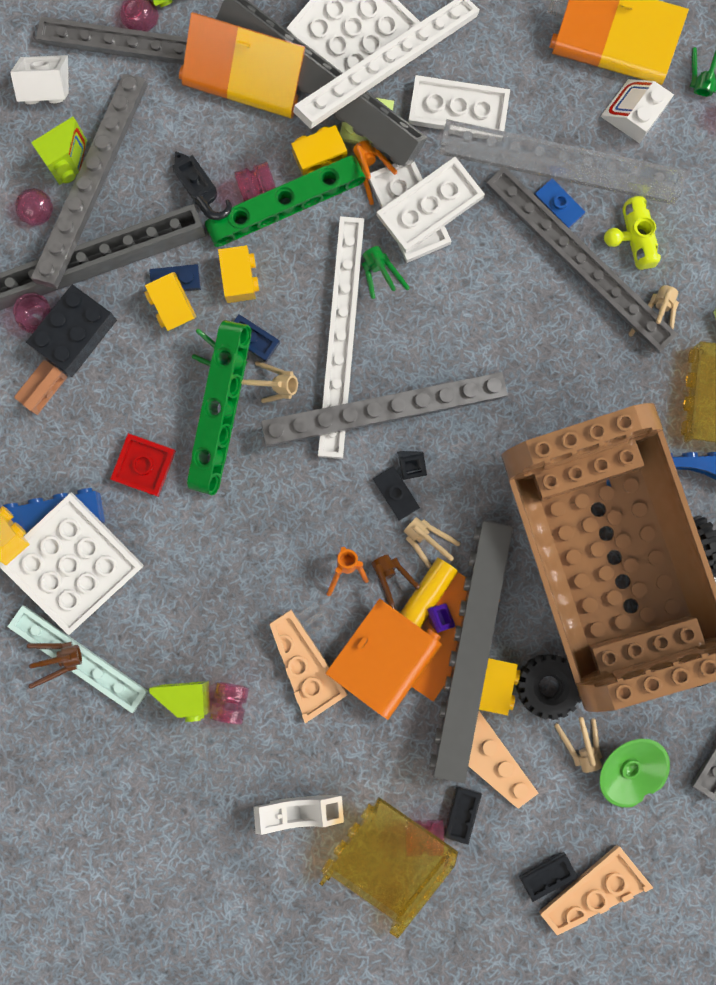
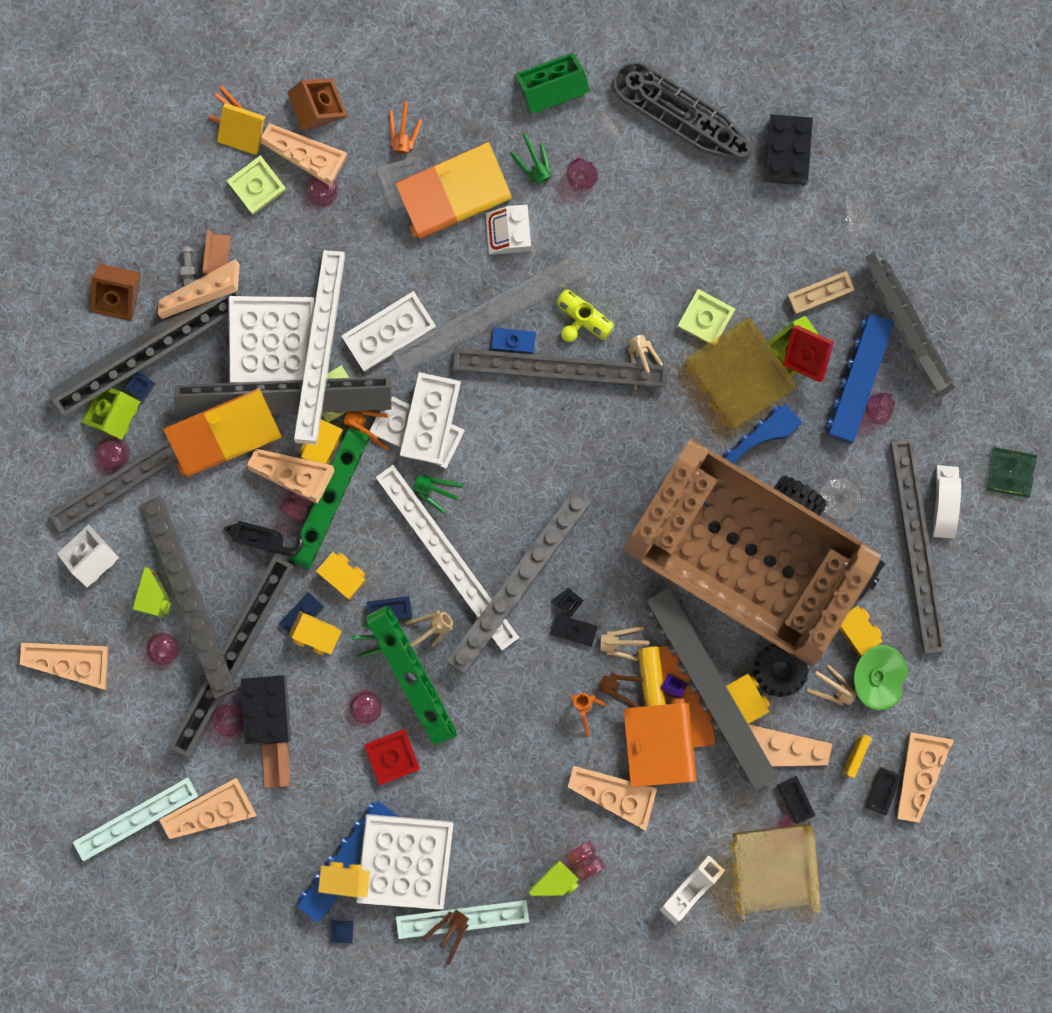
camera: 35 degrees left, 0 degrees up
(159, 402) = (365, 706): none -> clear pink hair
(272, 152) = (292, 473): none -> light nougat wing
(552, 825) = (856, 756): none -> yellow tile
(650, 718) = (859, 631): none -> yellow brick

